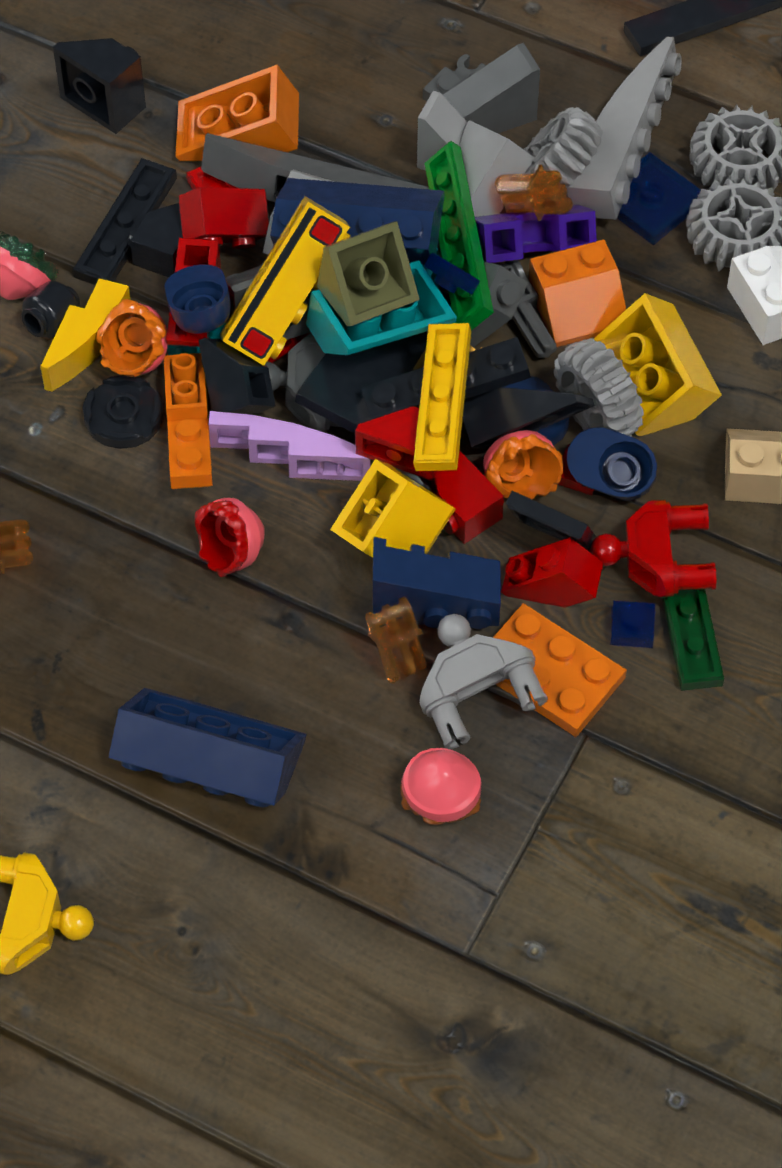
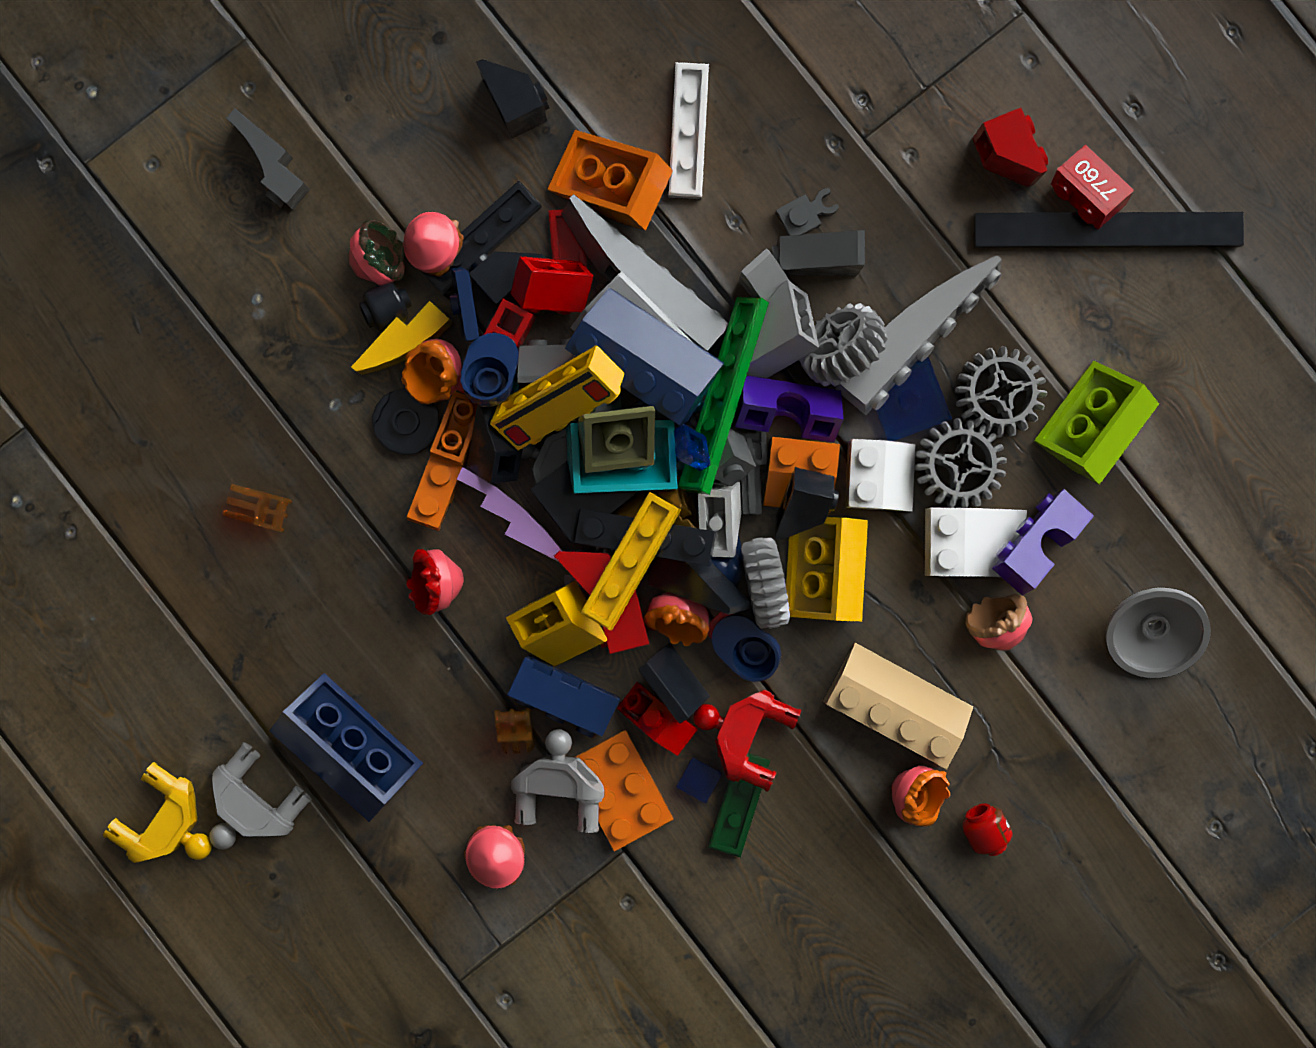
camera: 25 degrees right, 30 degrees up
(76, 233) = (432, 243): none -> coral hair
(120, 860) = (244, 808): none -> light grey connector
(138, 260) = (463, 304): none -> dark blue plate
(297, 61) = (688, 130): none -> white tile
(508, 328) = (721, 514): none -> white slope
(534, 193) = (799, 383): clear orange arm -> none
(598, 301) = (805, 502): none -> black slope
(659, 263) = (880, 475): none -> white slope

